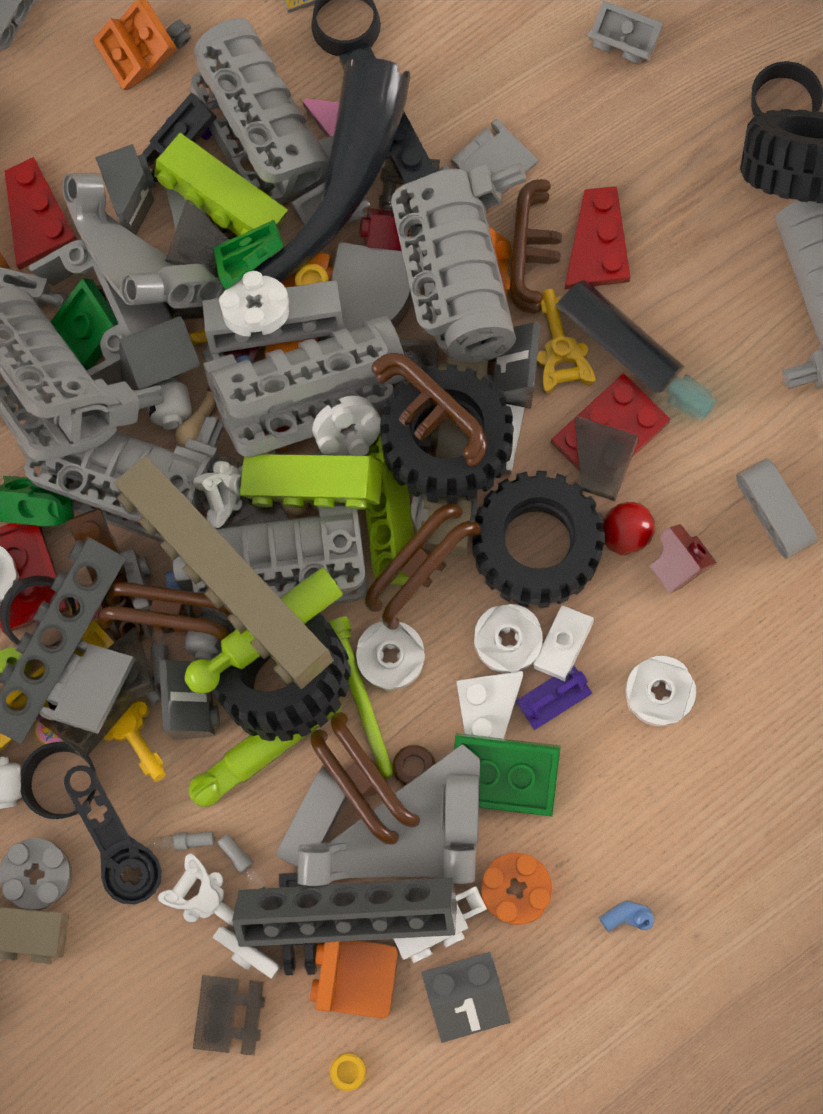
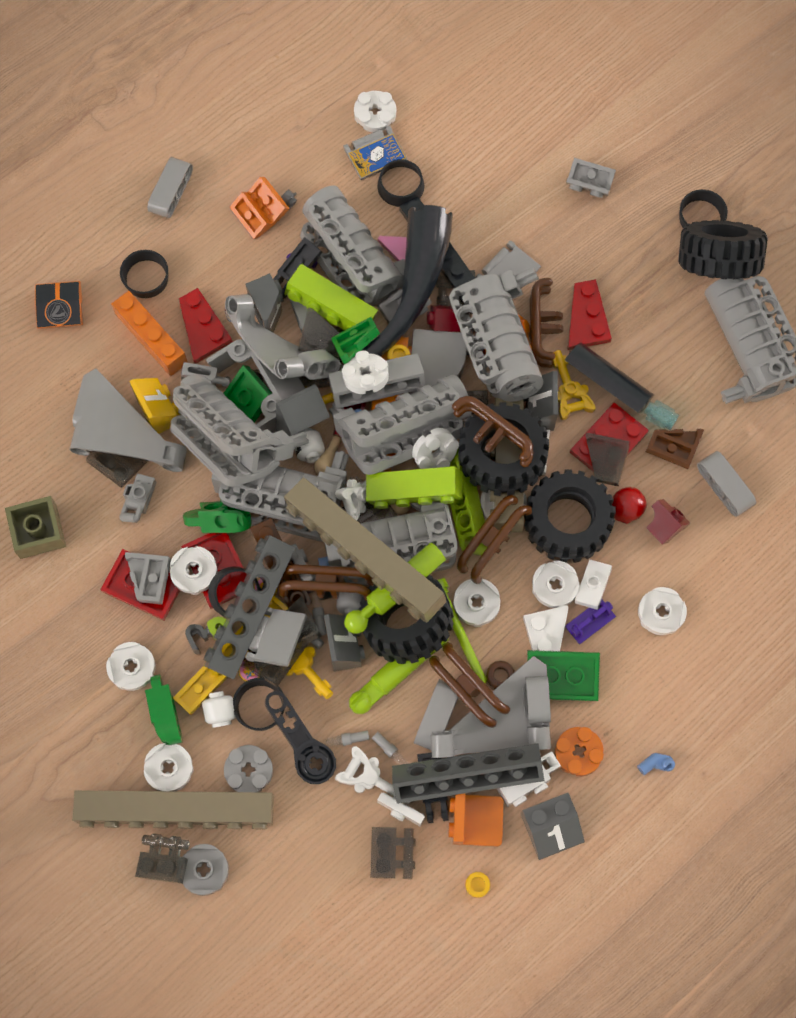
camera: 10 degrees left, 5 degrees down
(706, 445) = (675, 445): none -> reddish brown wing

